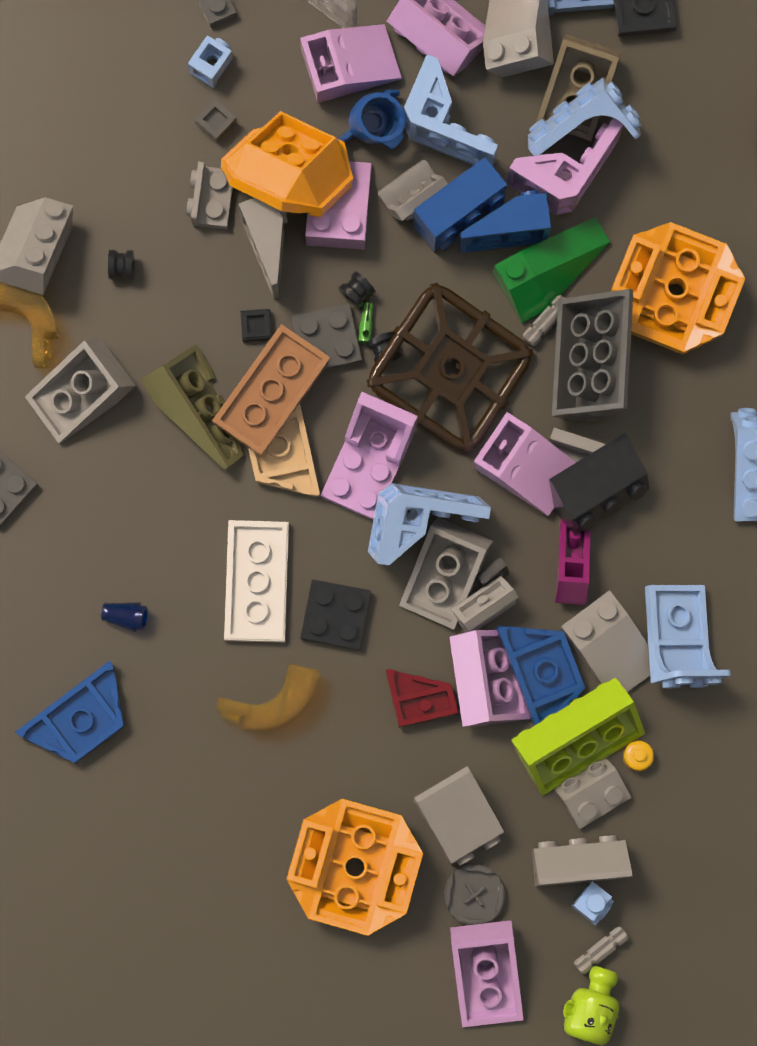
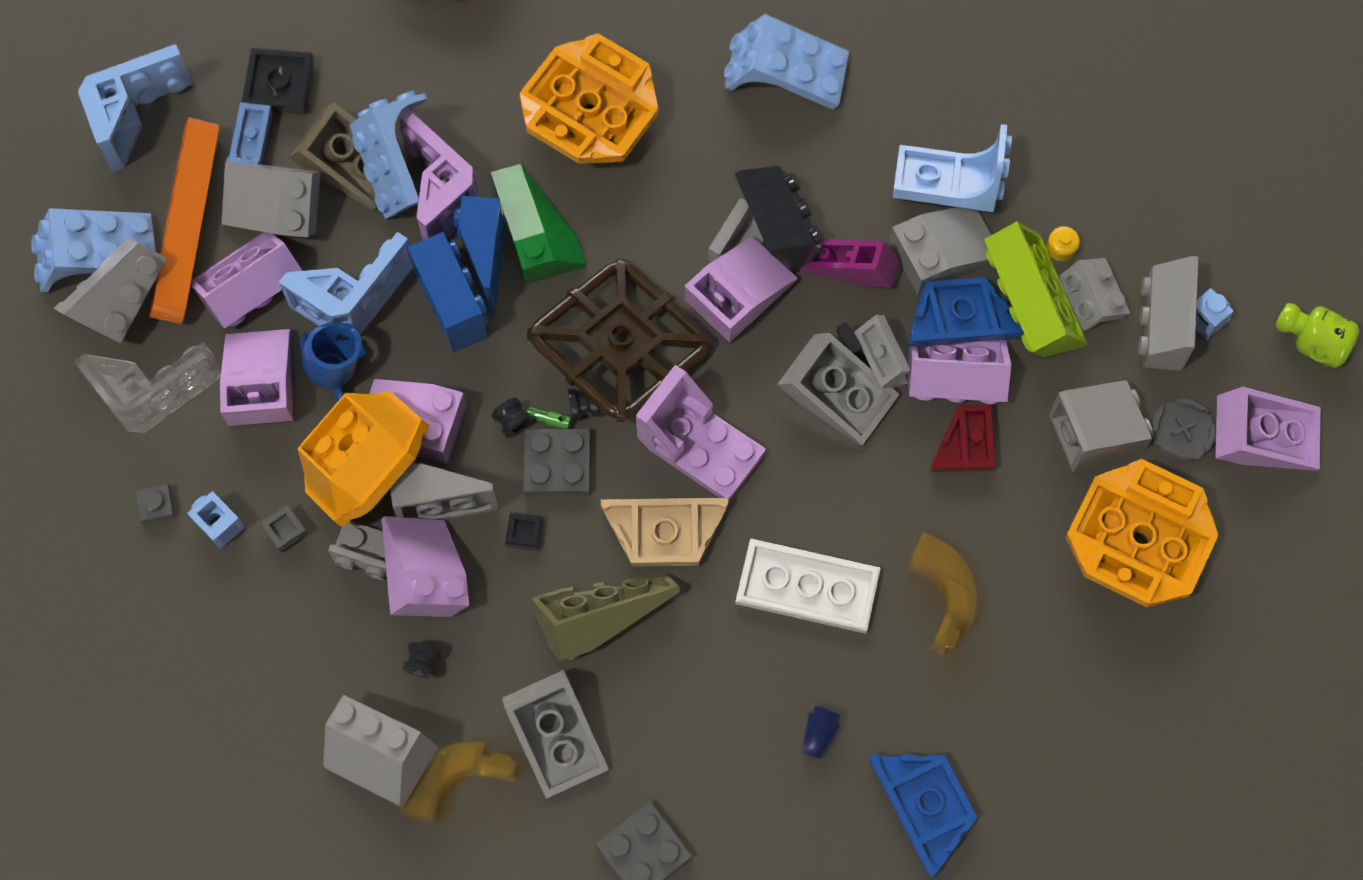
camera: 75 degrees left, 10 degrees down
(201, 244) = (423, 568): none -> lavender slope
(271, 390) = (604, 522): medium nougat plate -> none
(335, 615) = (860, 510): black plate -> none
(397, 530) = (781, 427): light blue bracket -> none
(411, 190) = (419, 338): light grey bracket -> none
(542, 324) = (589, 239): light grey axle -> none
(592, 356) = (644, 187): dark grey slope -> none
(601, 950) = (1257, 318): light grey axle -> none

